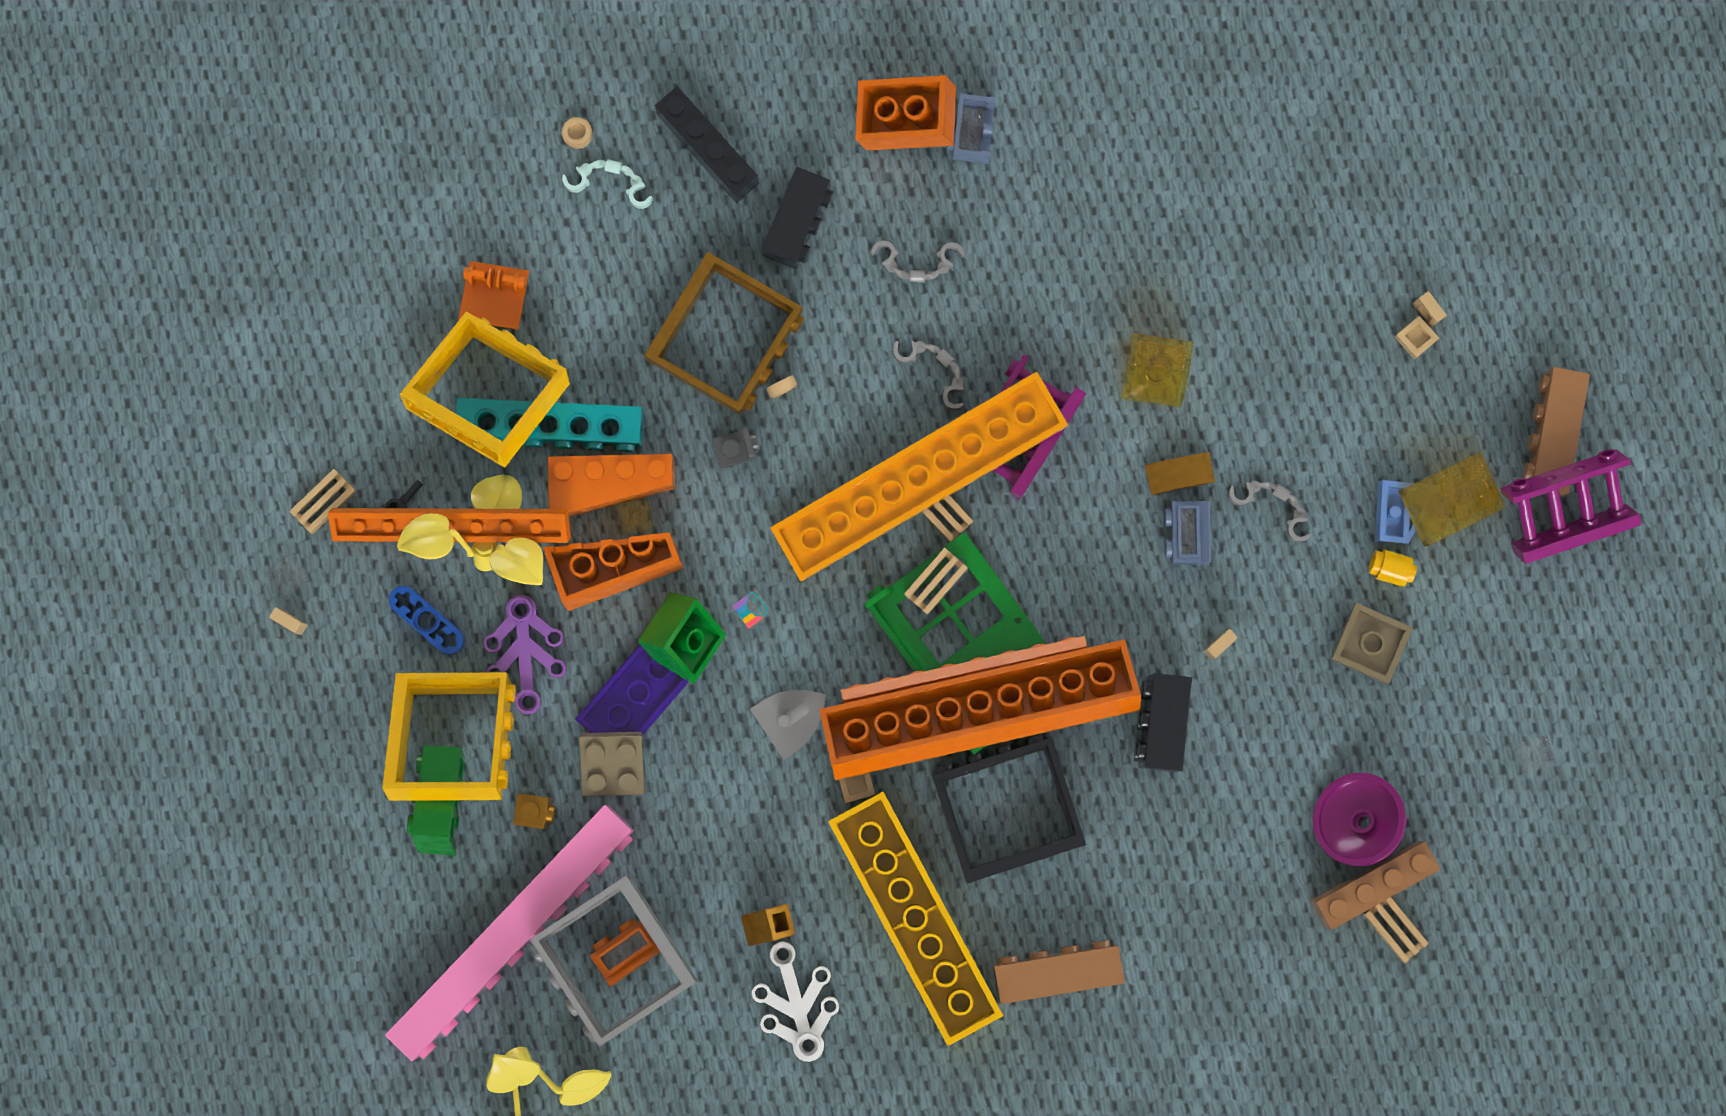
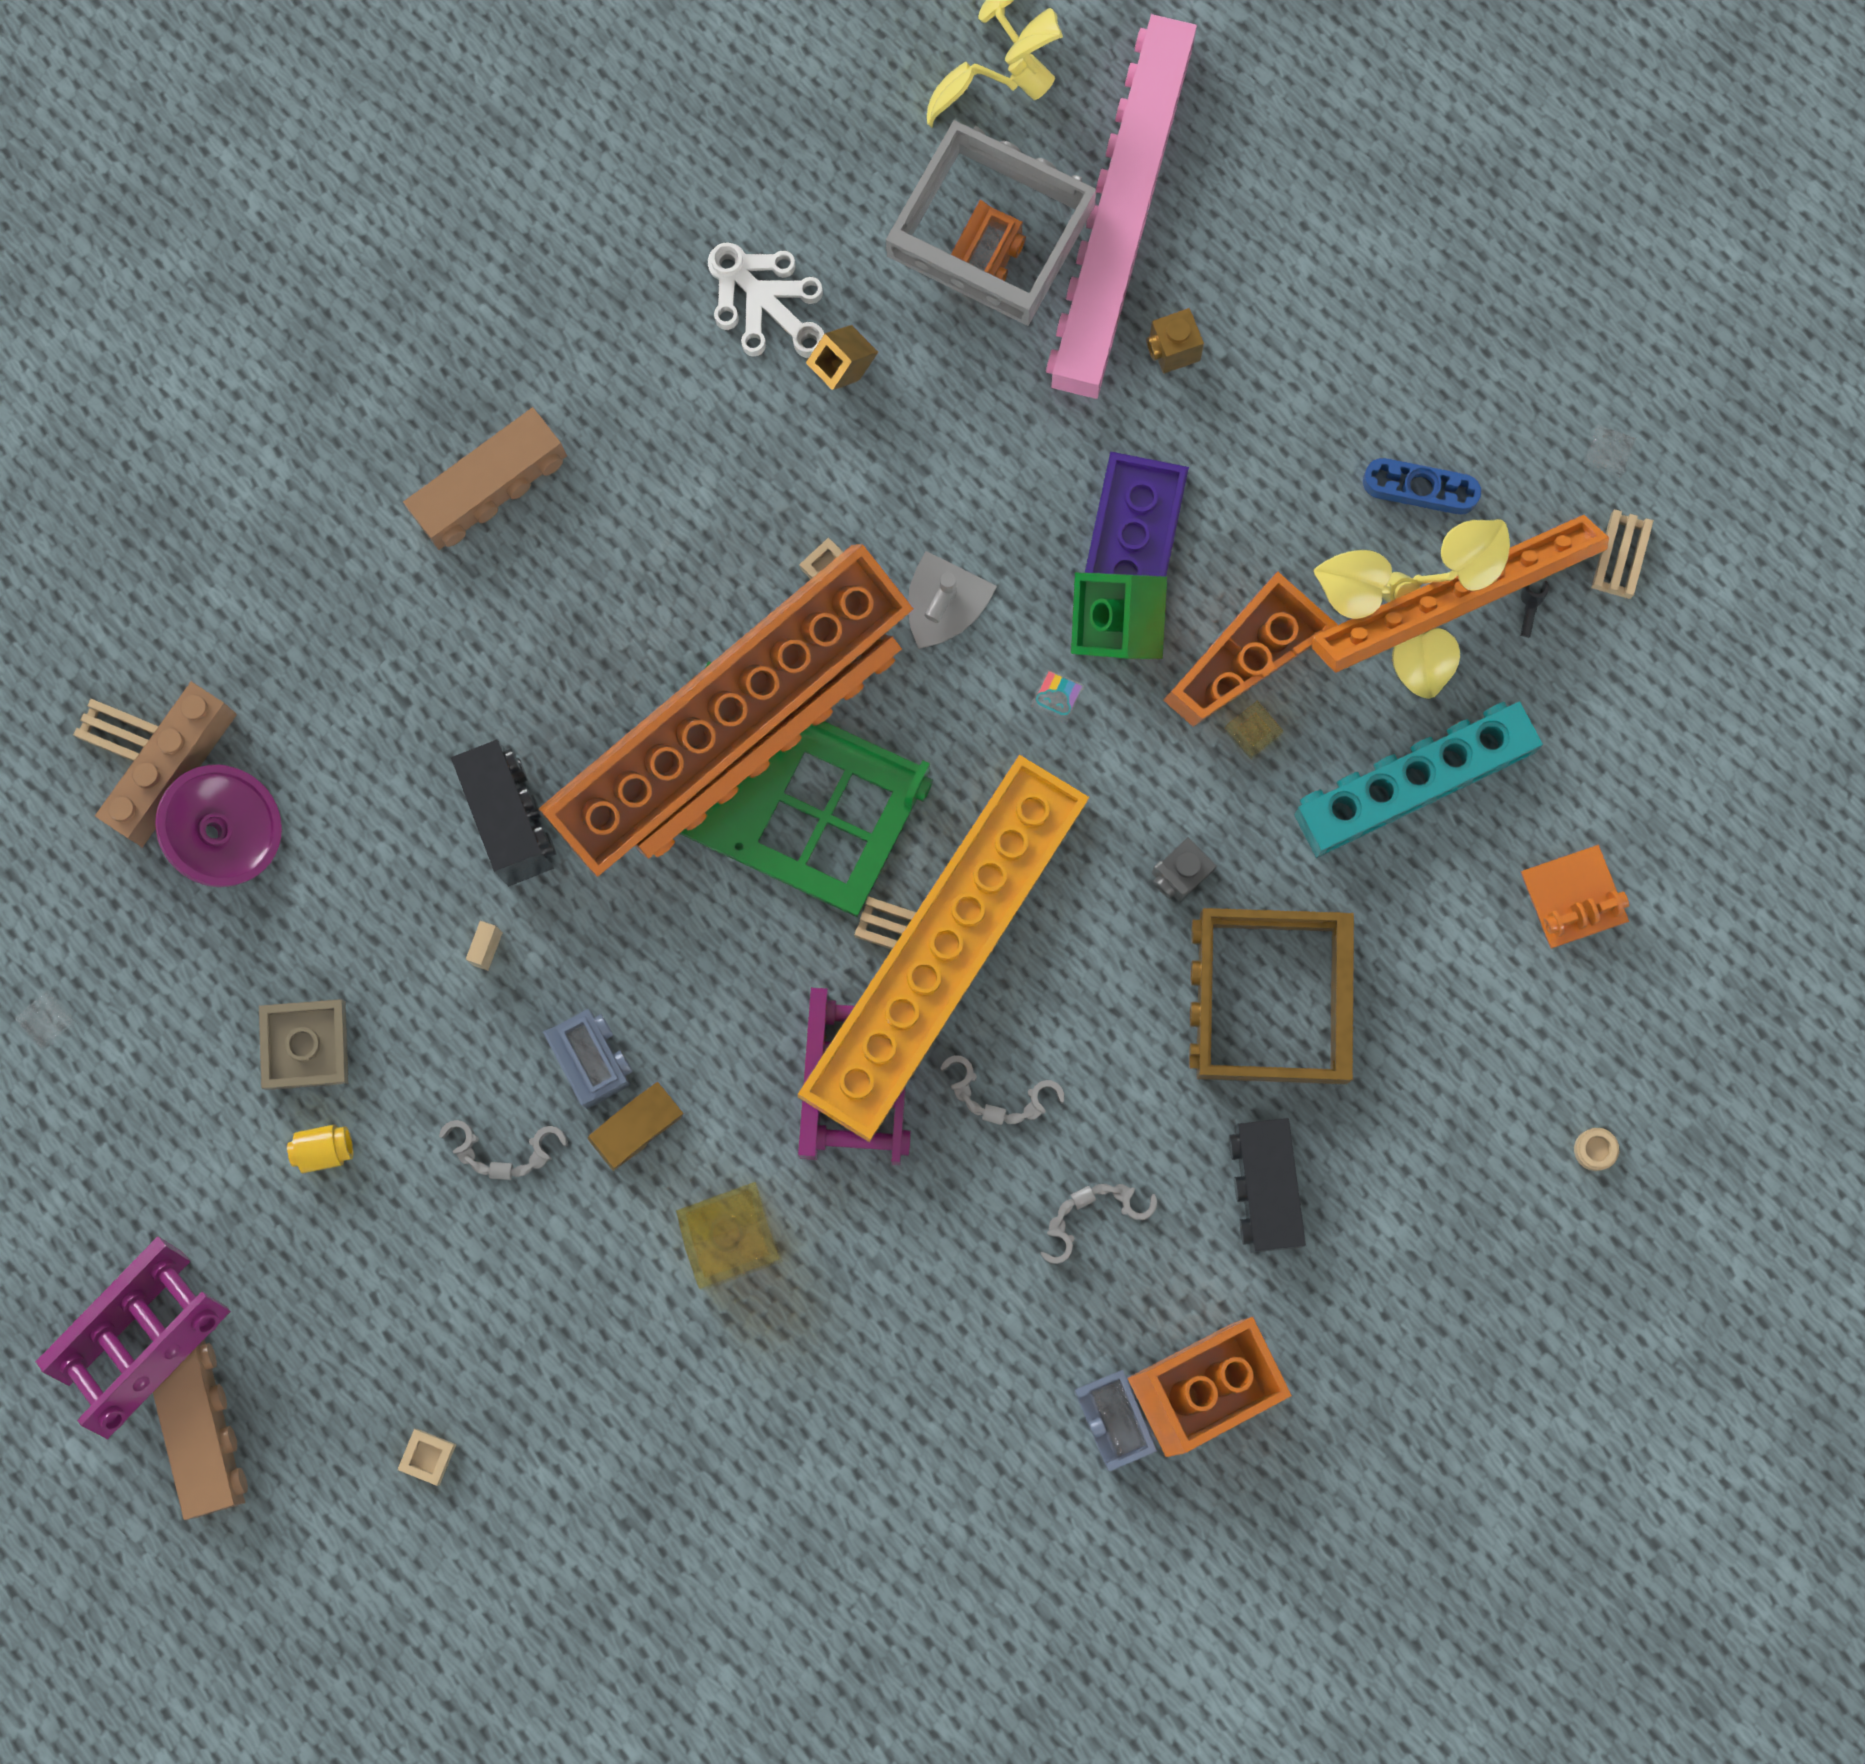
camera: 160 degrees right, 5 degrees down
(288, 621) = (1576, 399): tan tile -> none
(413, 684) = (1375, 339): yellow window -> none
(435, 820) = (1291, 296): green wedge -> none
(468, 327) = (1587, 781): yellow window -> none
(524, 648) = (1291, 513): medium lavender plant -> none
(605, 480) = (1319, 741): orange wedge -> none
(612, 763) = (1117, 439): dark tan plate -> none
(613, 167) = (1527, 1130): light aqua piece -> none
(706, 144) = (1431, 1216): black brick -> none
(782, 387) = (1169, 970): tan tile -> none
(915, 918) = (680, 450): yellow brick -> none
(919, 601) = (867, 806): tan tile -> none
(1025, 857) = (596, 579): black window -> none
(1392, 517) = (344, 1225): medium blue wing -> none
(1429, 309) = (426, 1498): tan tile -> none
(1452, 499) = (286, 1272): clear yellow plate -> none

